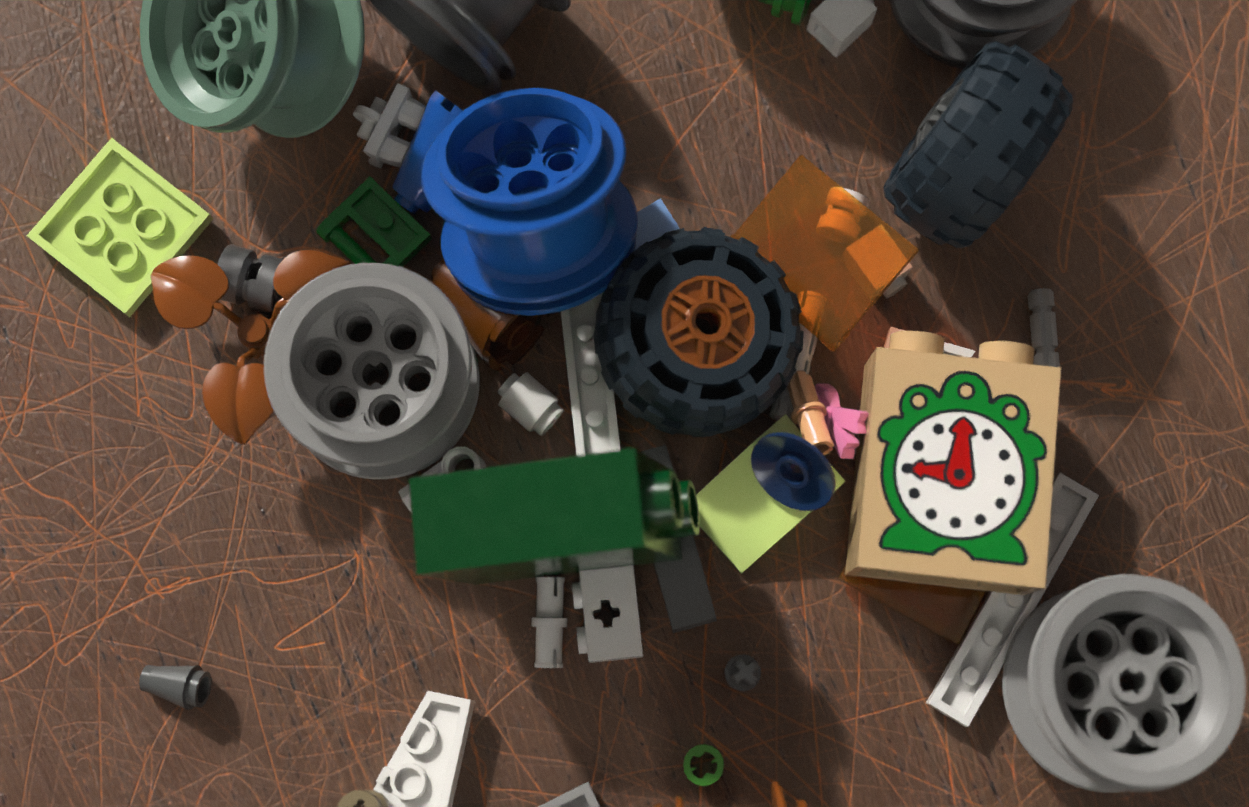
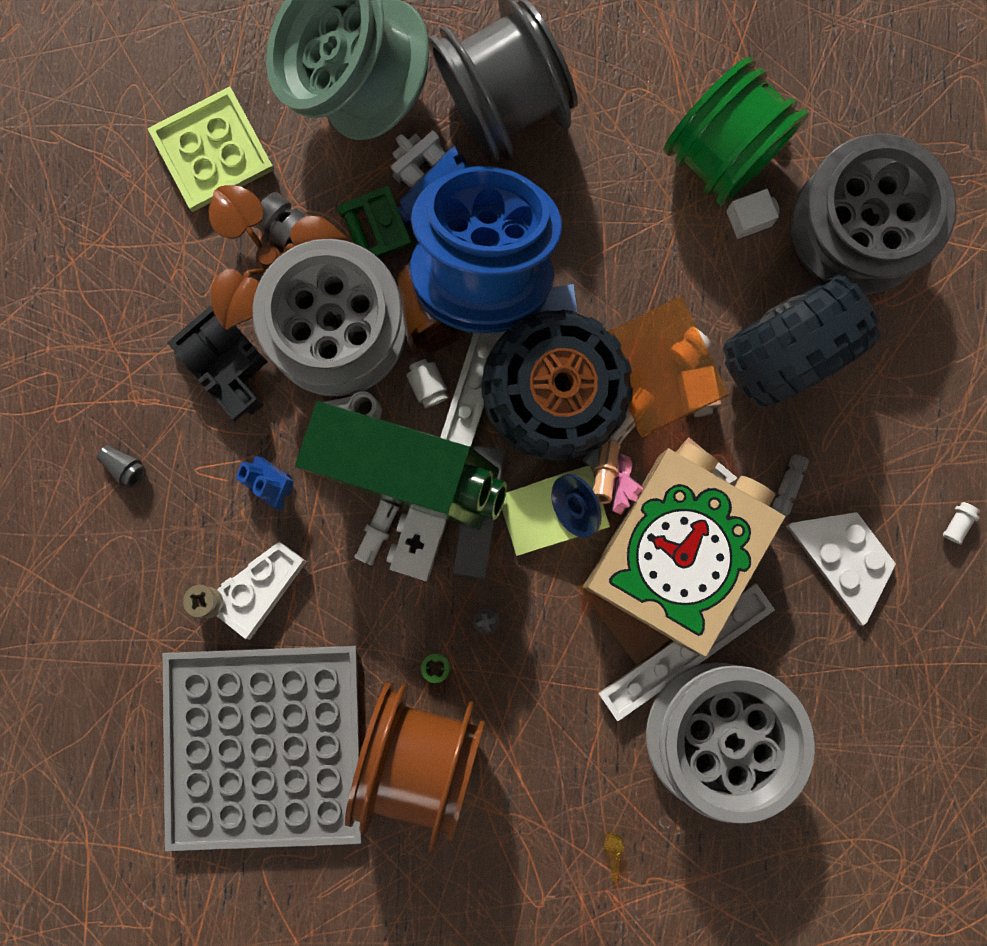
camera: 25 degrees right, 5 degrees up
(250, 490) = (220, 362): none -> black plate
(377, 619) = (266, 481): none -> blue hips
(1157, 393) = (847, 559): none -> white wing

